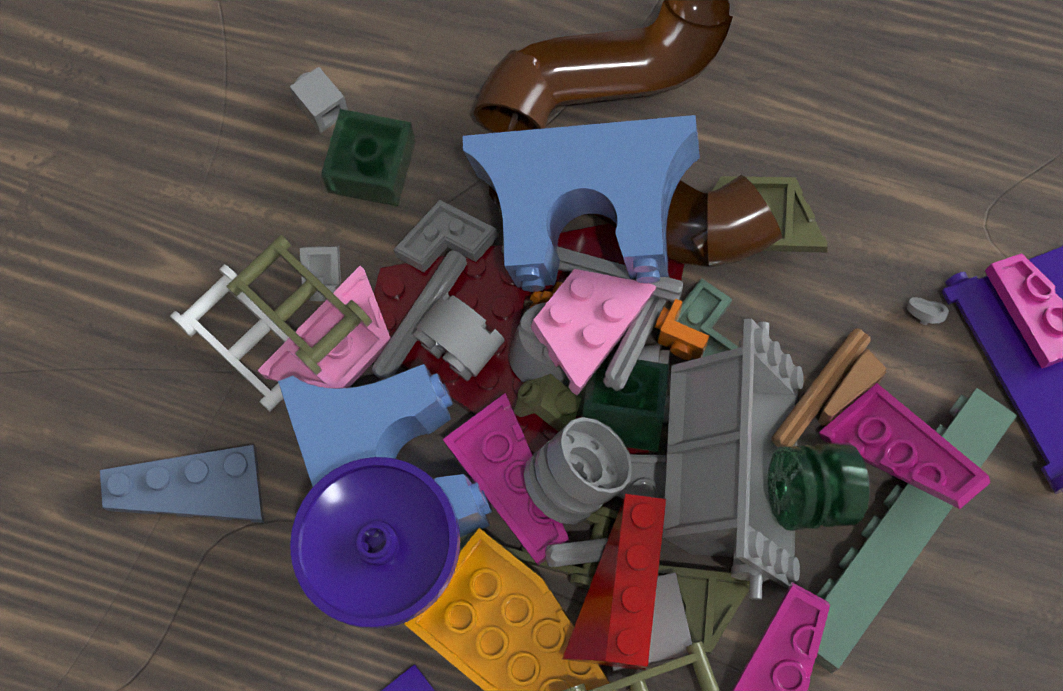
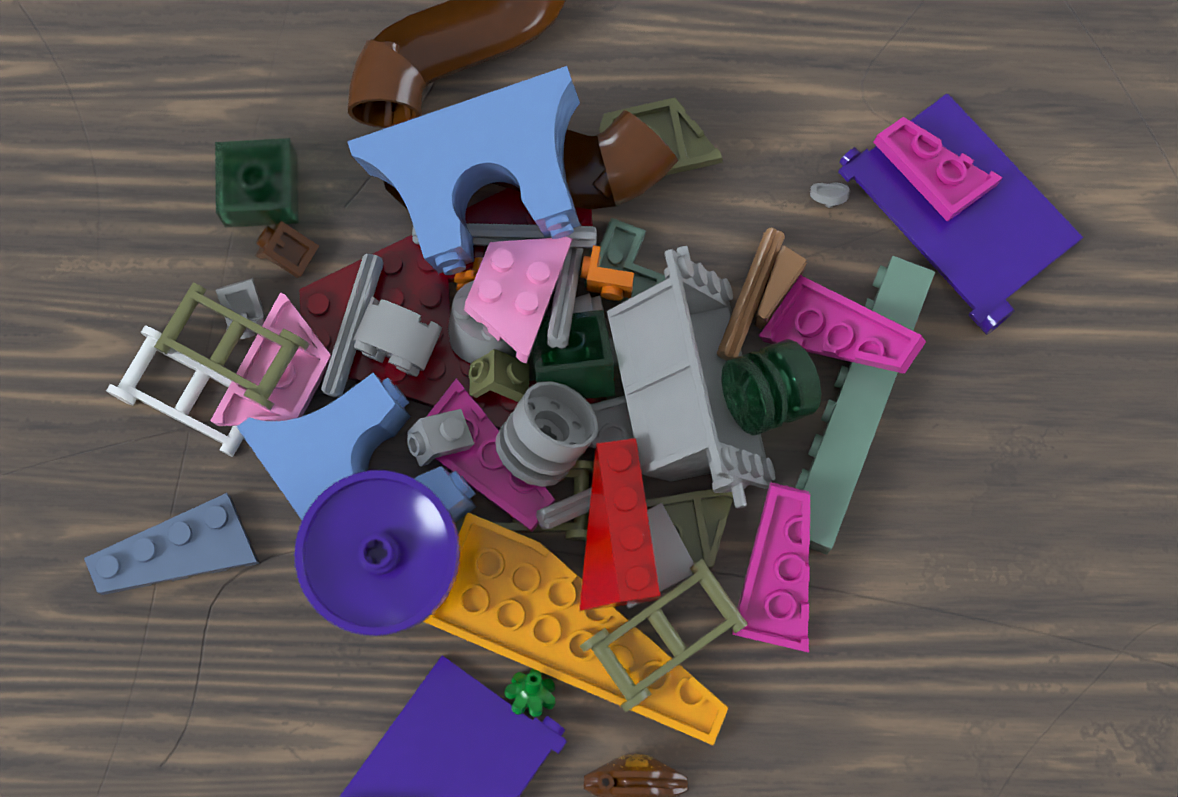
camera: 20 degrees left, 5 degrees up
(318, 98) = (188, 136): light grey brick -> none
(379, 226) = (286, 248): none -> reddish brown bracket
(444, 228) = (350, 233): light grey tile -> none
(472, 445) = (439, 436): none -> light grey bracket

